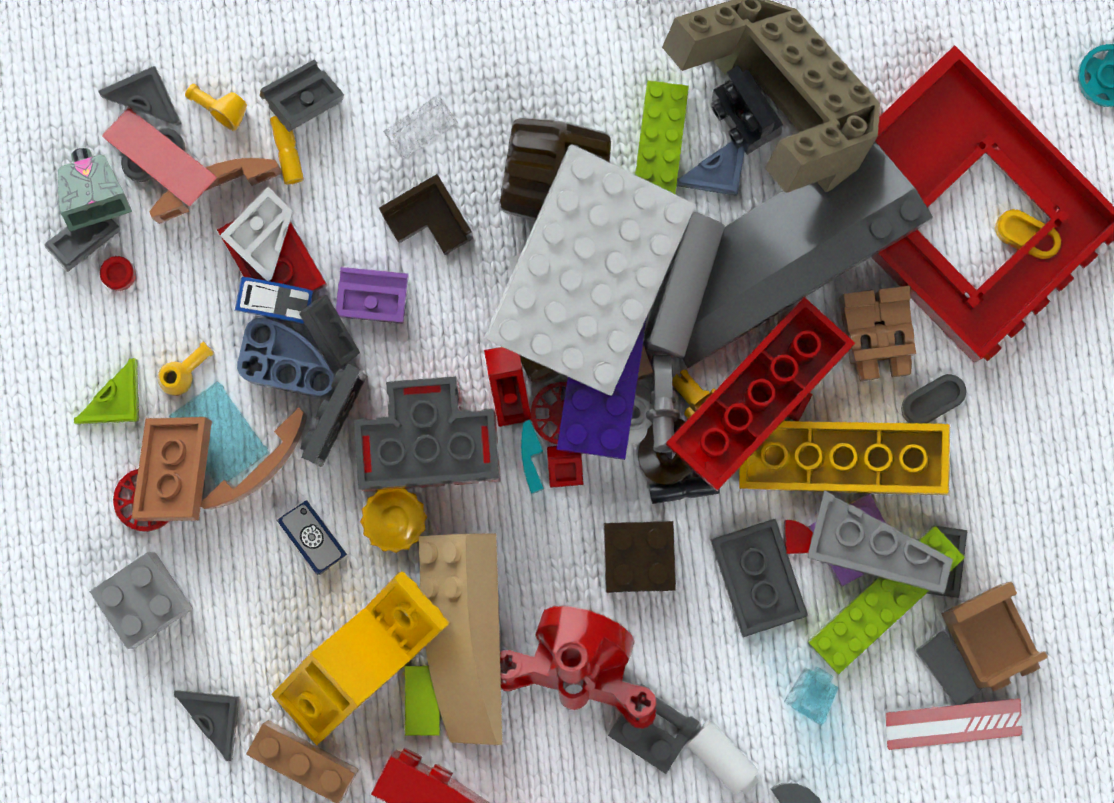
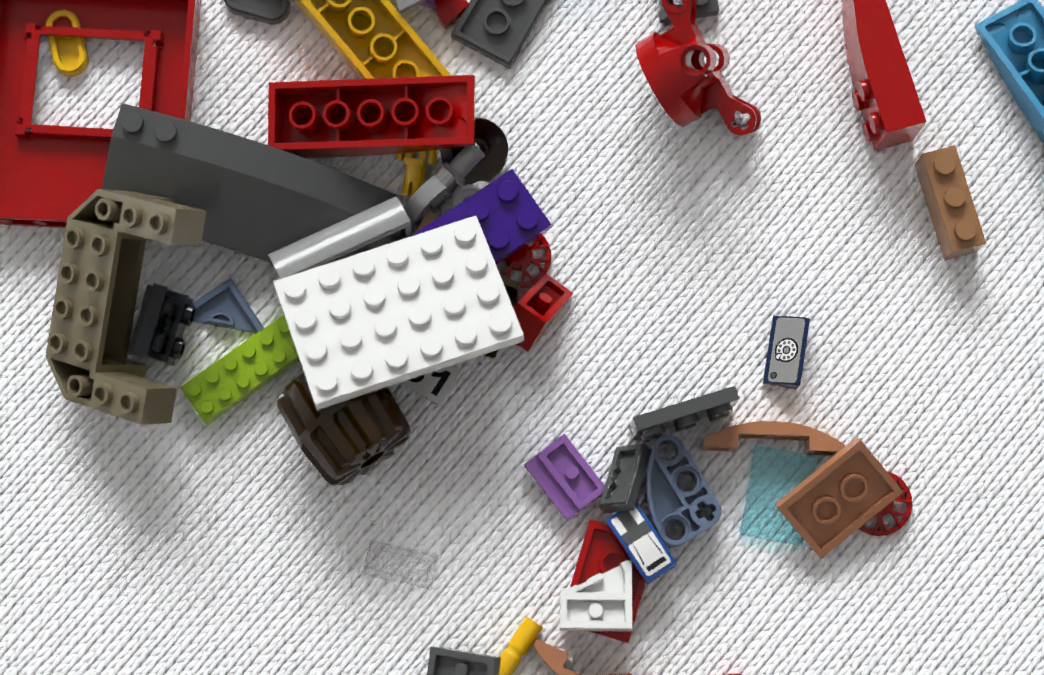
camera: 135 degrees left, 5 degrees down
(116, 400) = (829, 597): lime tile -> none
(141, 600) = (954, 429): light grey brick -> none
(183, 371) = (757, 568): yellow bar -> none
(215, 717) = (981, 301): dark grey tile -> none
(360, 658) = (838, 225): yellow bracket -> none
(393, 519) = (716, 300): yellow piece -> none
(421, 705) = (822, 163): lime tile -> none
(426, 439) = (635, 324): dark grey piece -> none
(429, 207) = (454, 491): dark brown panel -> none
(464, 658) = (747, 173): tan slope -> none
(530, 448) = (569, 251): teal slope -> none
(564, 467) = (561, 216): red slope -> none
(639, 556) = (572, 101): dark brown brick -> none
(687, 488) = (486, 110): black piece -> none
(893, 311) = (217, 84): medium nougat hips -> none

